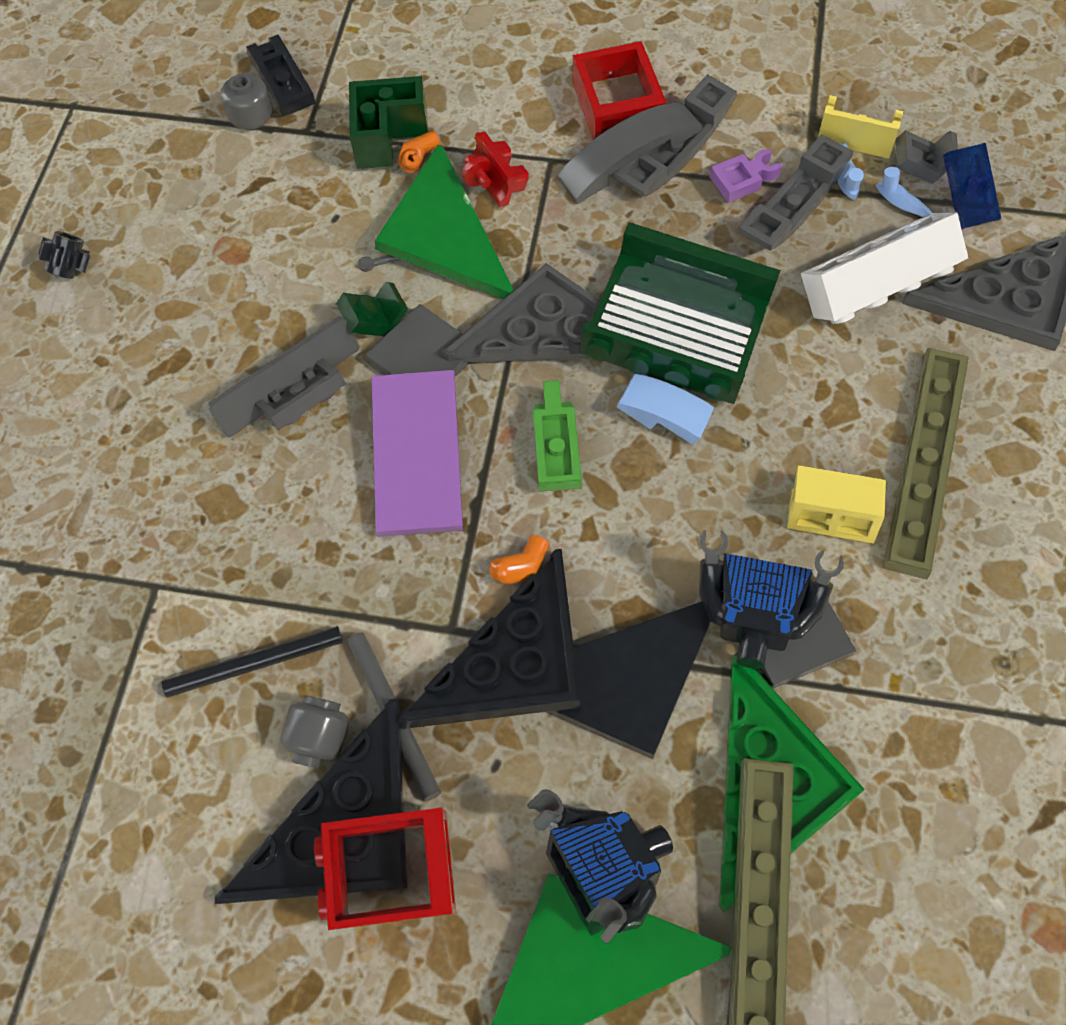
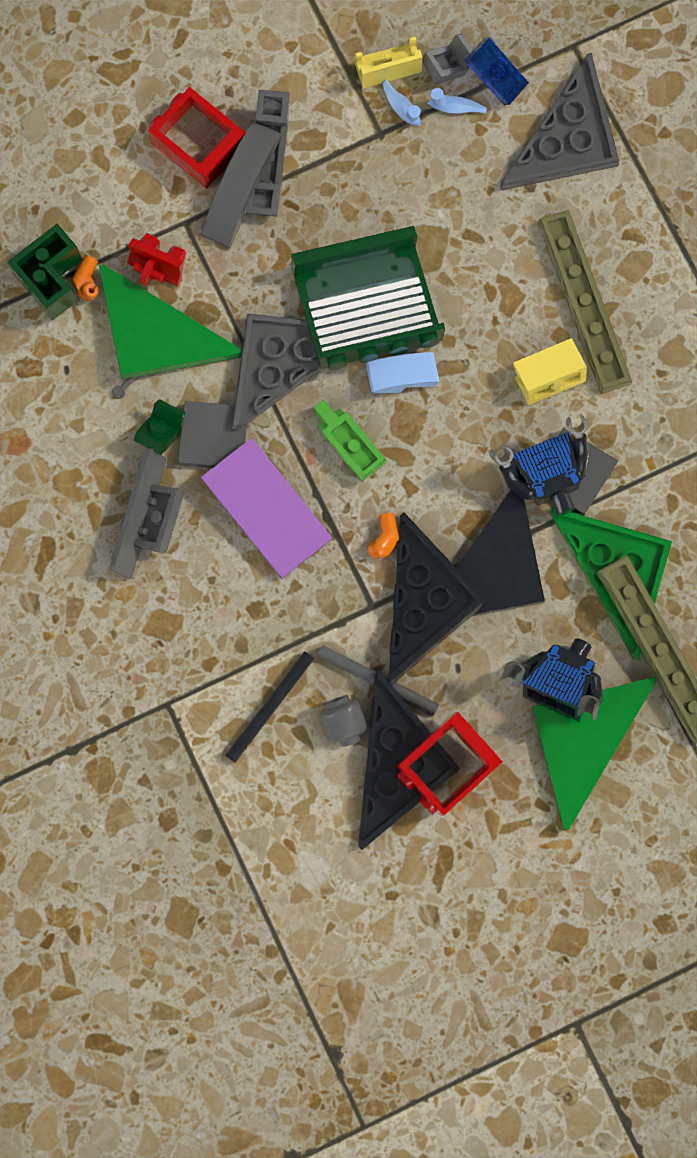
camera: 35 degrees left, 15 degrees up
(742, 177) = (332, 156): medium lavender plate -> none
(798, 196) = (381, 150): dark grey slope -> none
(885, 267) = (477, 176): white brick -> none

